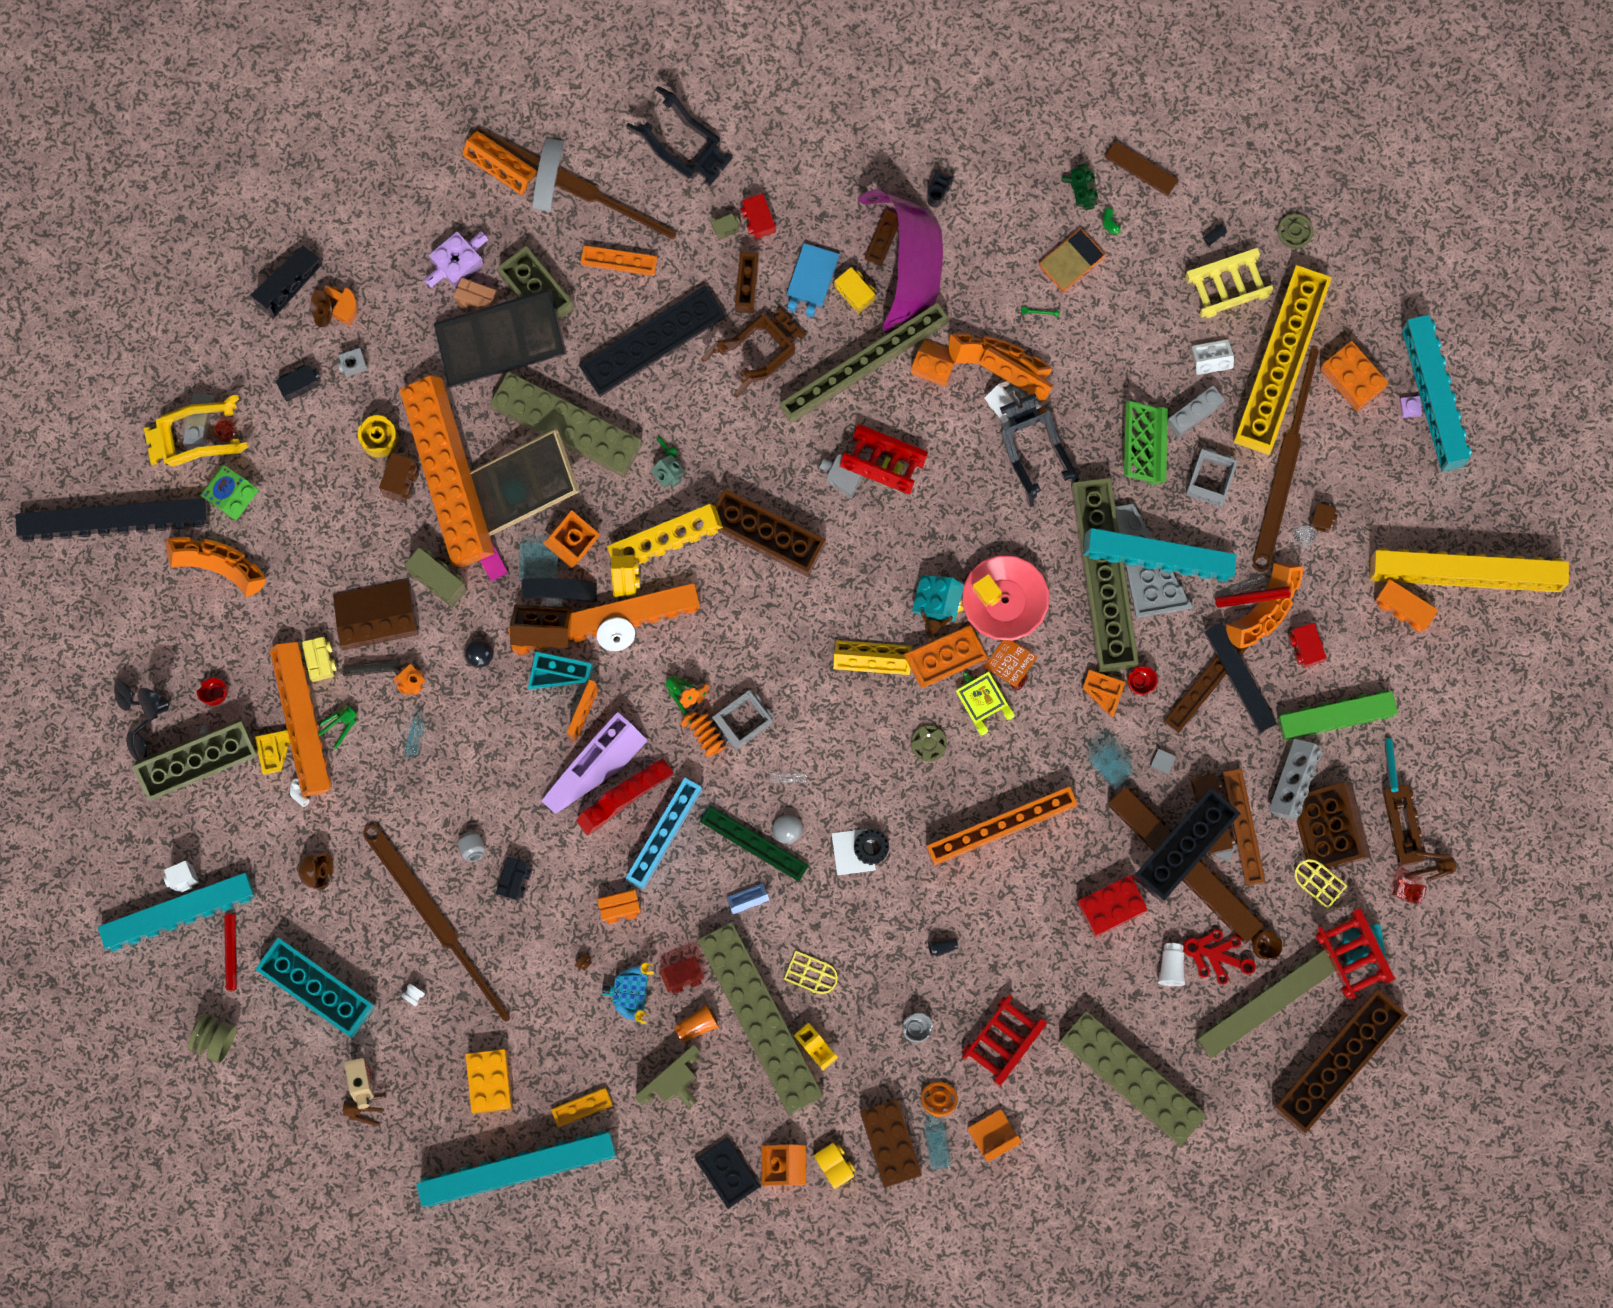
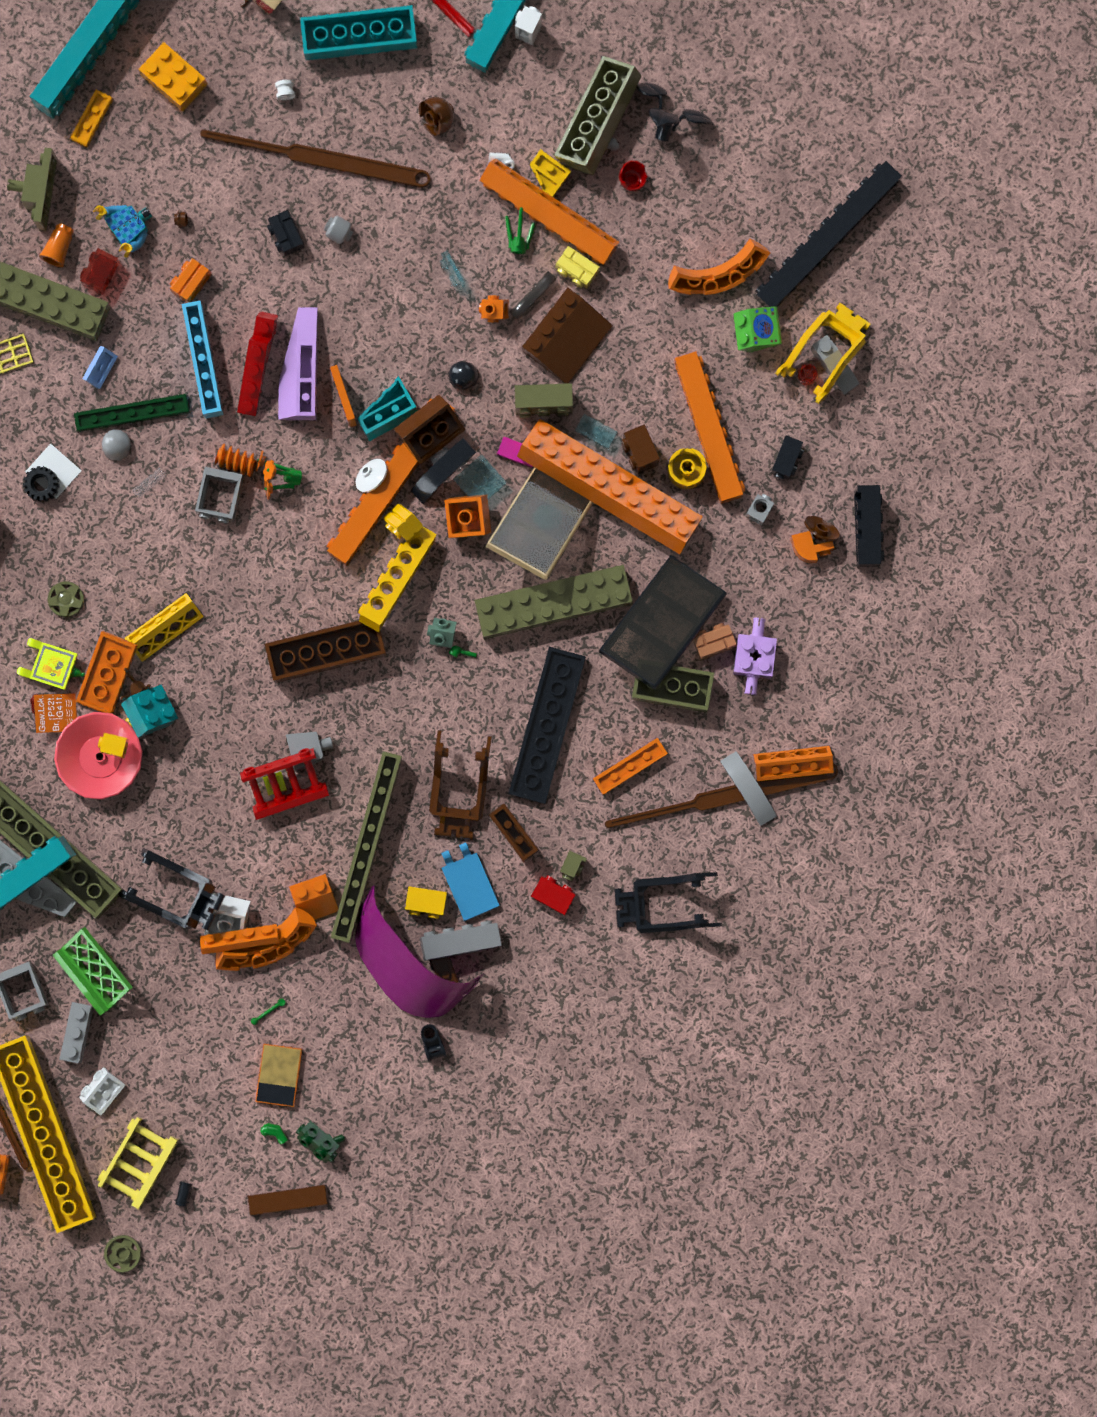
camera: 135 degrees right, 5 degrees up
(333, 454) = (708, 427): none -> orange brick
(419, 524) = (596, 431): none -> clear light blue plate
(855, 239) = (461, 941): none -> light grey brick

